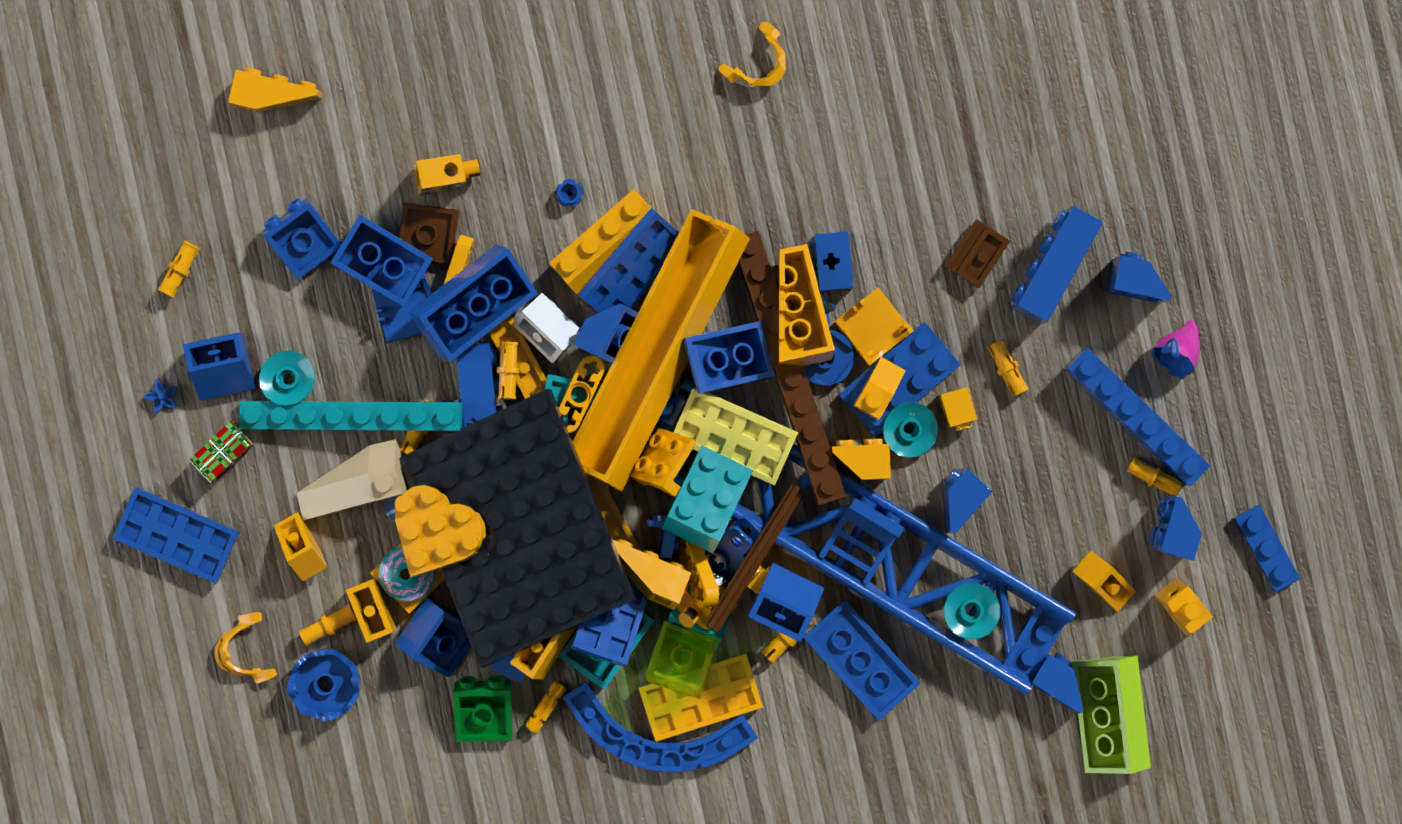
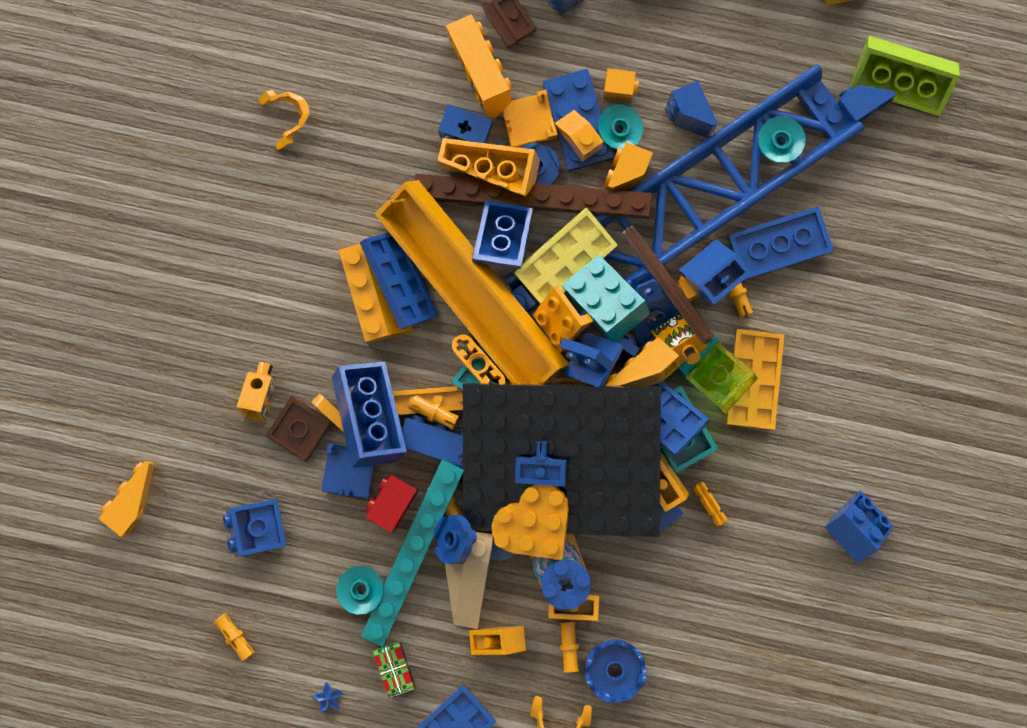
camera: 70 degrees left, 5 degrees down
(219, 366) = (325, 639): blue slope -> none
(376, 603) = (571, 597): none -> blue plate
(381, 260) = (302, 471): blue slope -> none
(382, 453) = (455, 549): none -> blue plate
(391, 371) = (391, 503): none -> red brick
(435, 638) = (617, 565): blue slope -> none
(483, 709) = (690, 553): green plate -> none
(493, 511) = (540, 469): none -> blue plate
(546, 327) = (415, 367): white brick -> none
(569, 185) = (318, 298): blue plate -> none
(605, 332) = (439, 321): blue slope -> none
(635, 512) = (591, 359): none -> blue bracket
(653, 754) = (782, 438): blue plate -> none
(701, 578) = (673, 332): light orange beam -> none
(881, 526) = (675, 185): blue plate -> none
(907, 245) = (480, 67): none -> light orange wedge
(1007, 368) = (605, 35): light orange pin -> none
(1104, 581) = (799, 35): light orange slope -> none

